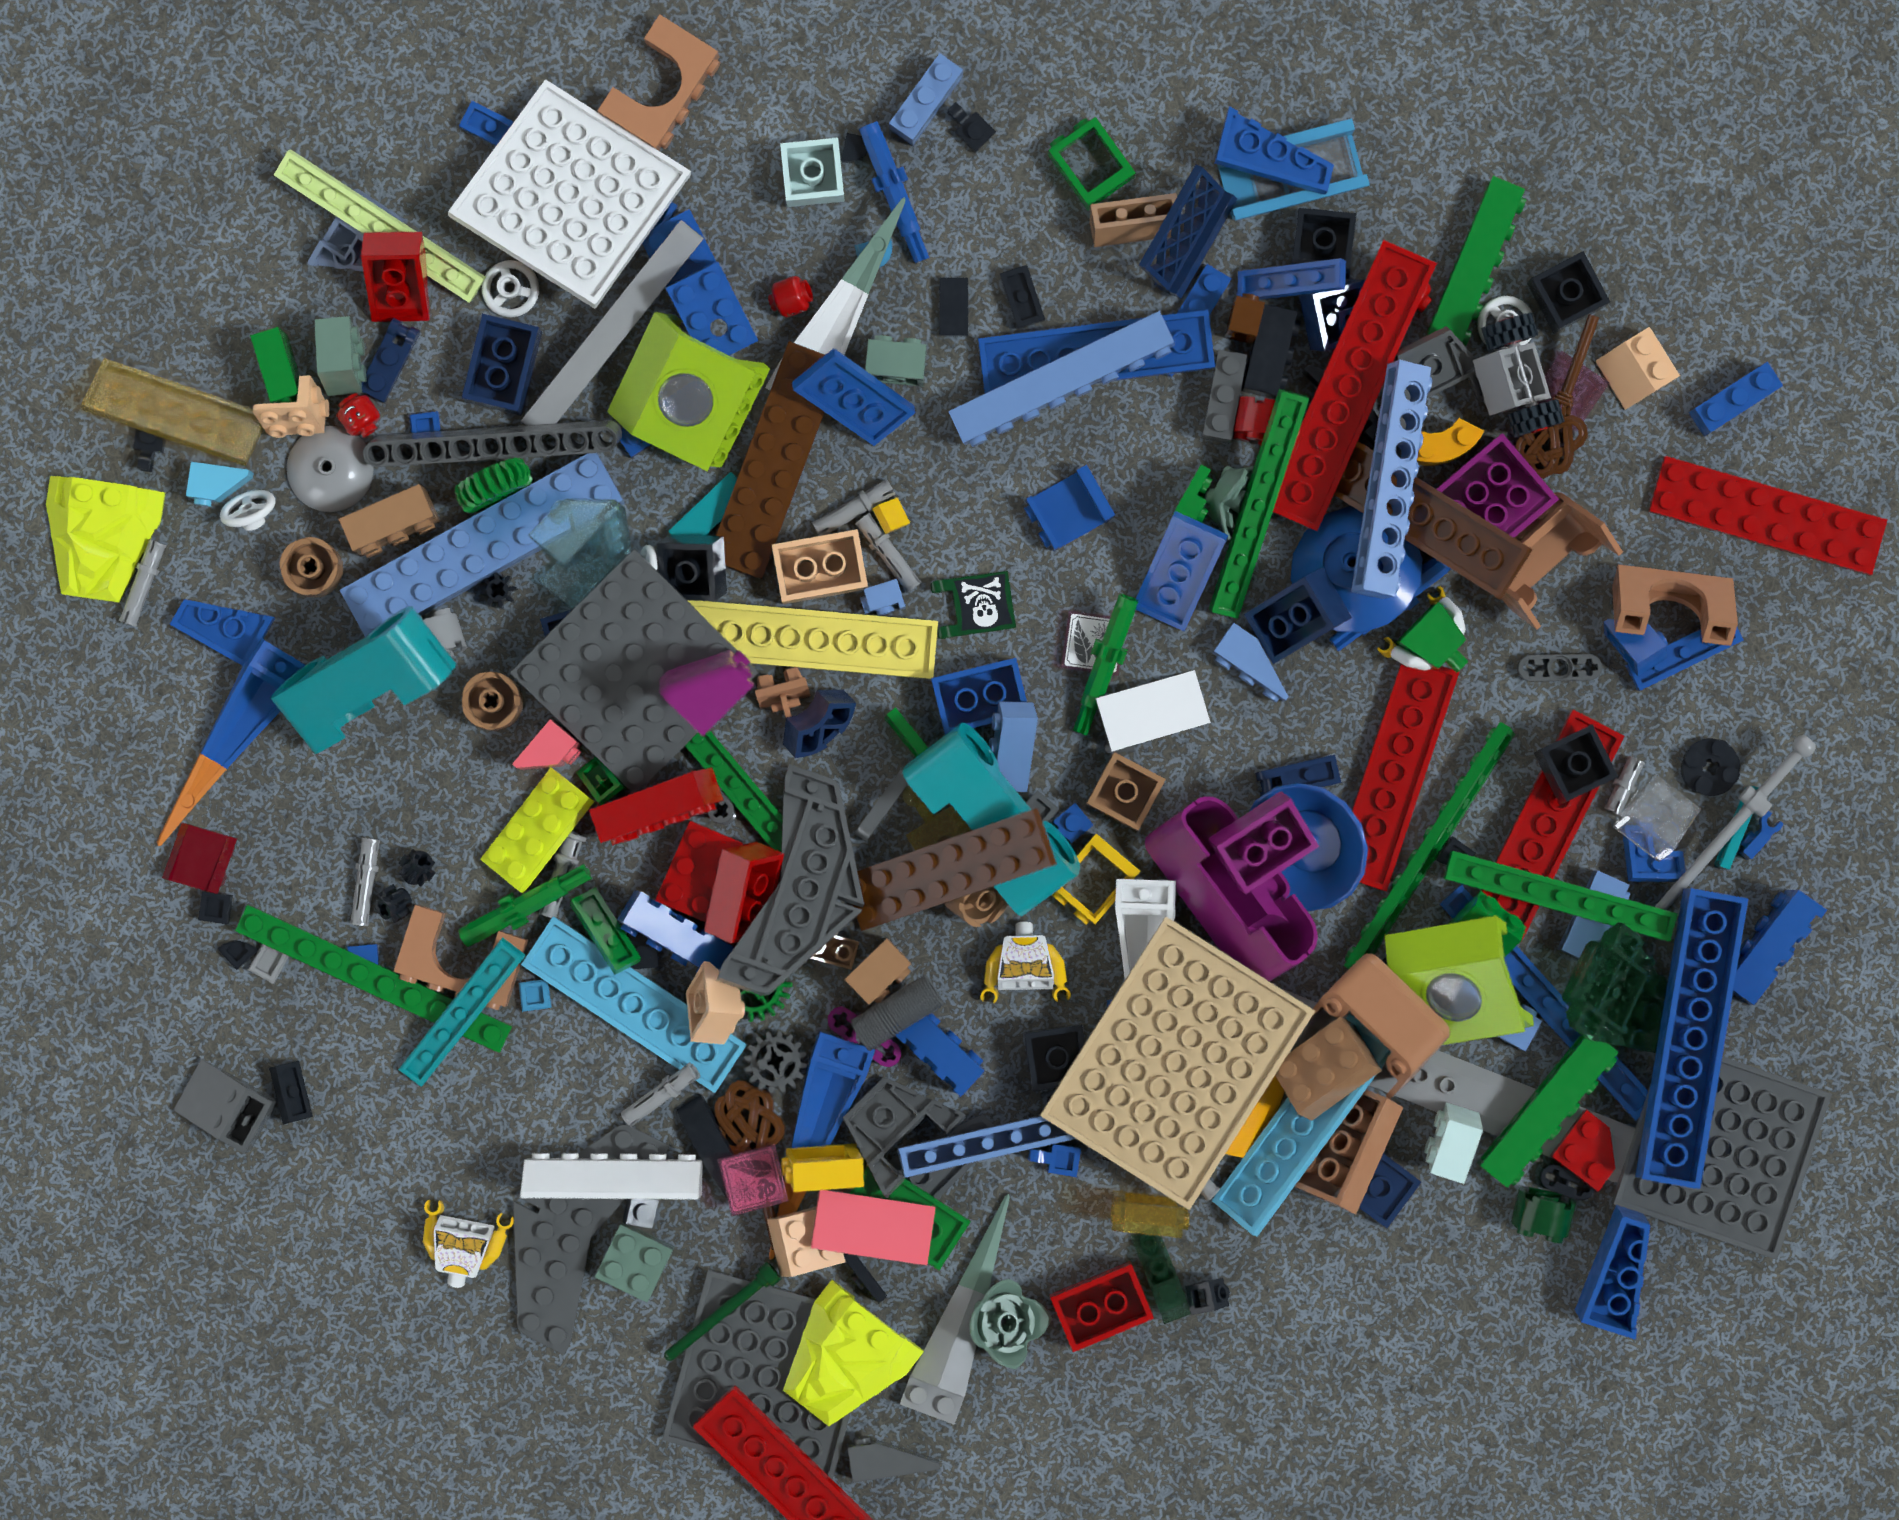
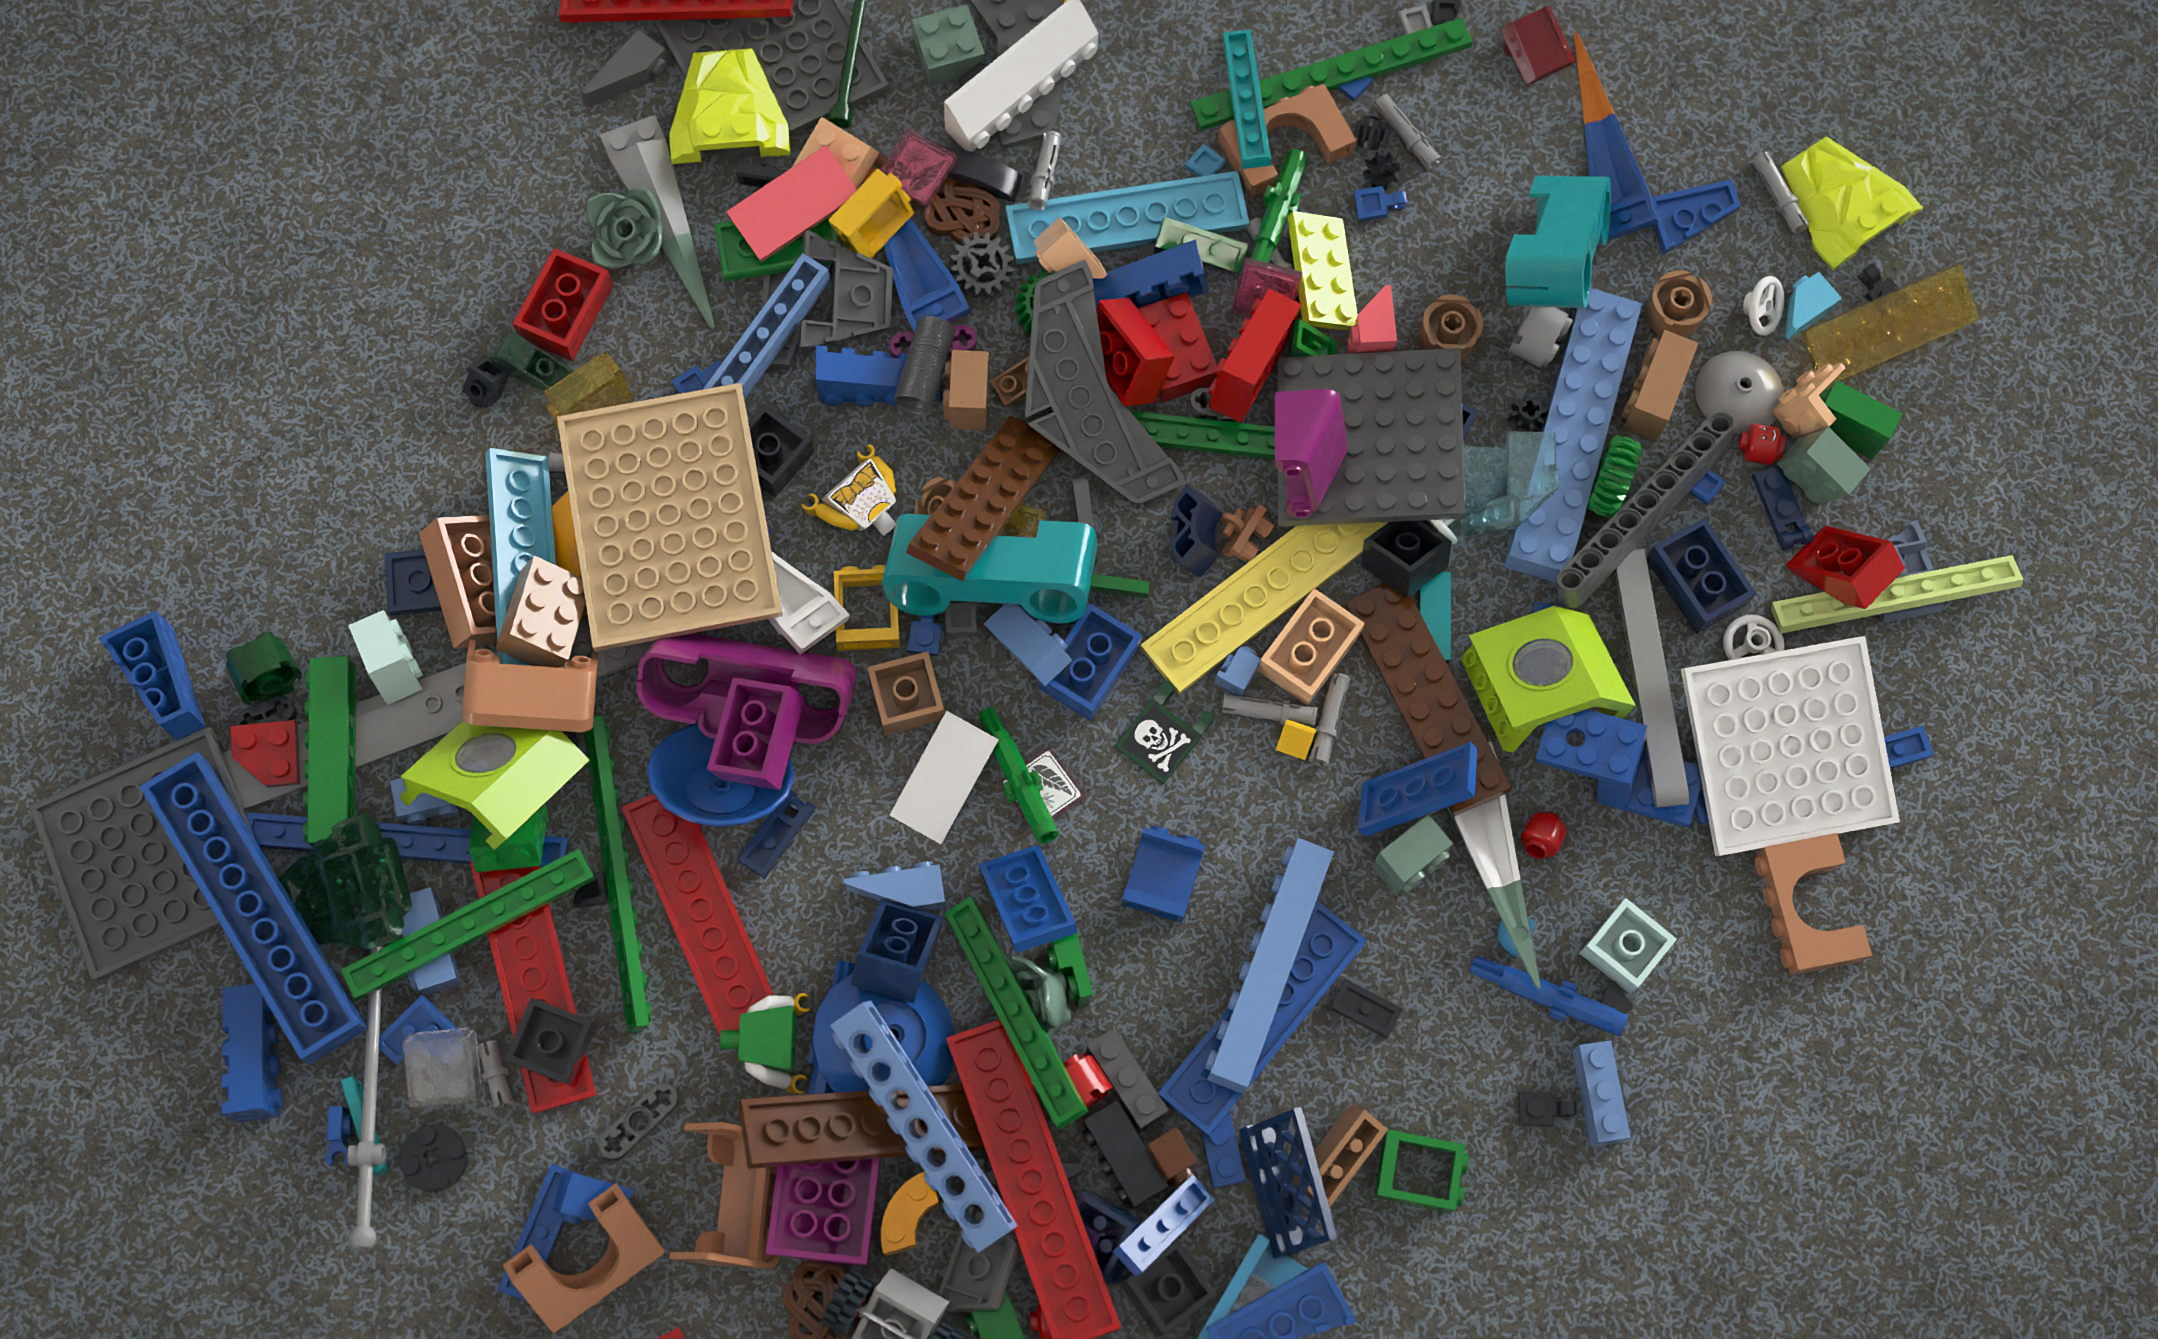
camera: 135 degrees right, 15 degrees down
(215, 907) = (1490, 23): black plate -> none
(446, 849) = (1373, 203): none -> blue plate
(595, 858) = (1260, 276): none -> clear pink tile
(953, 307) = (1410, 950): black tile -> none

